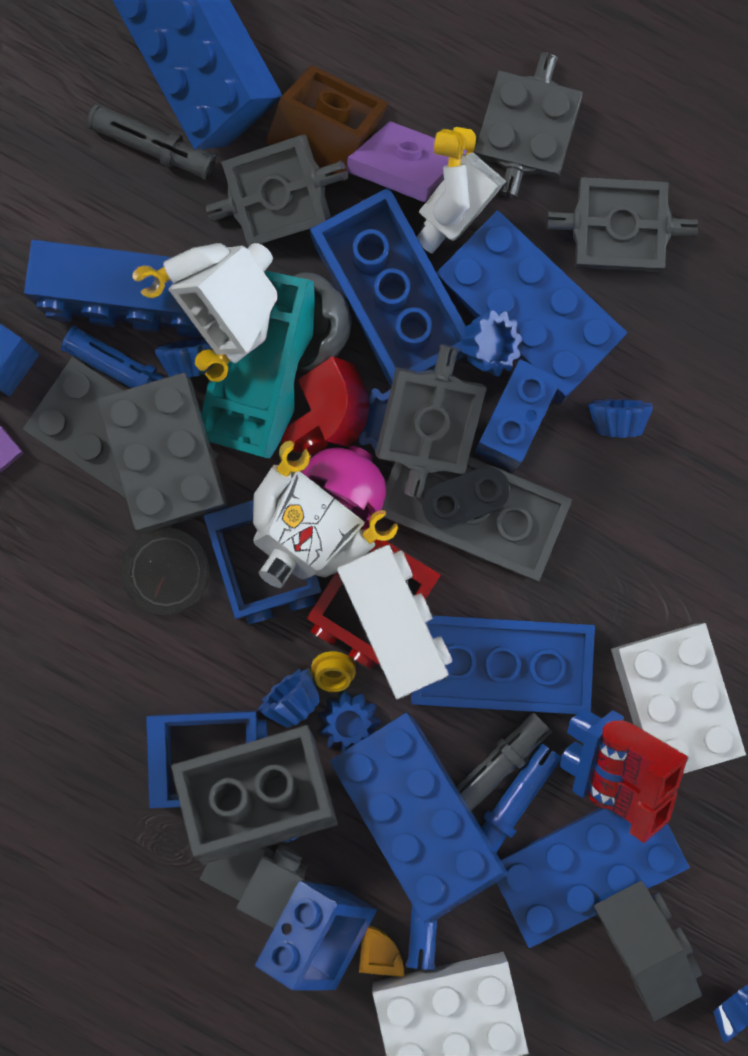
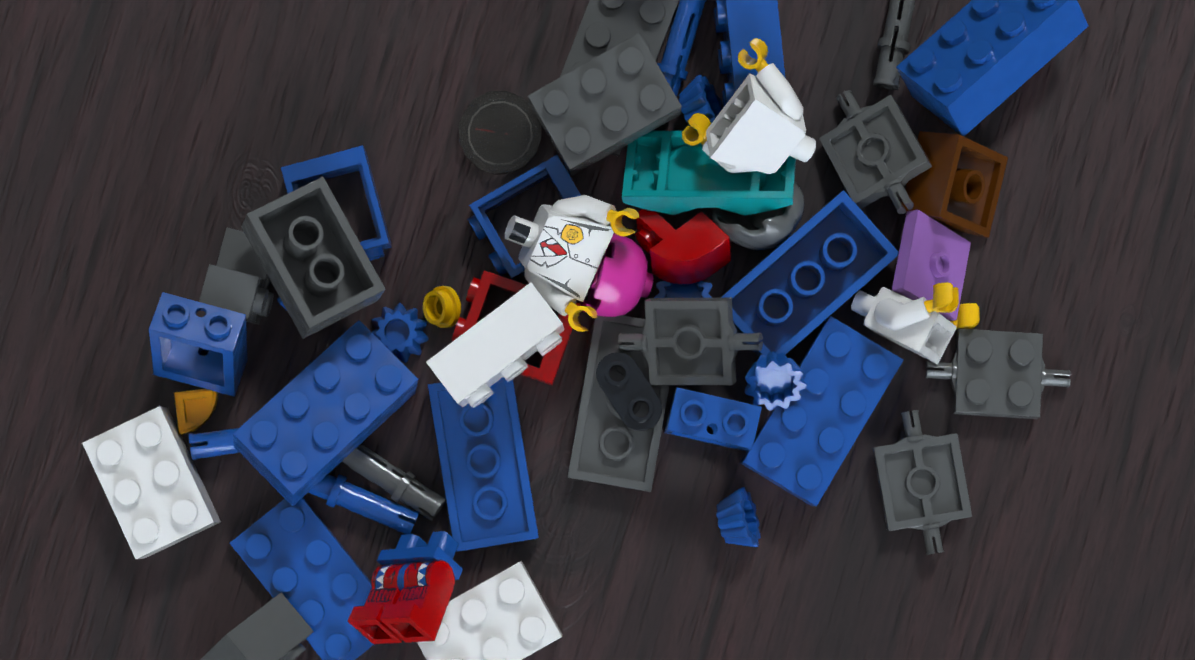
camera: 75 degrees right, 0 degrees up
(291, 699) = (408, 274): blue piece -> none

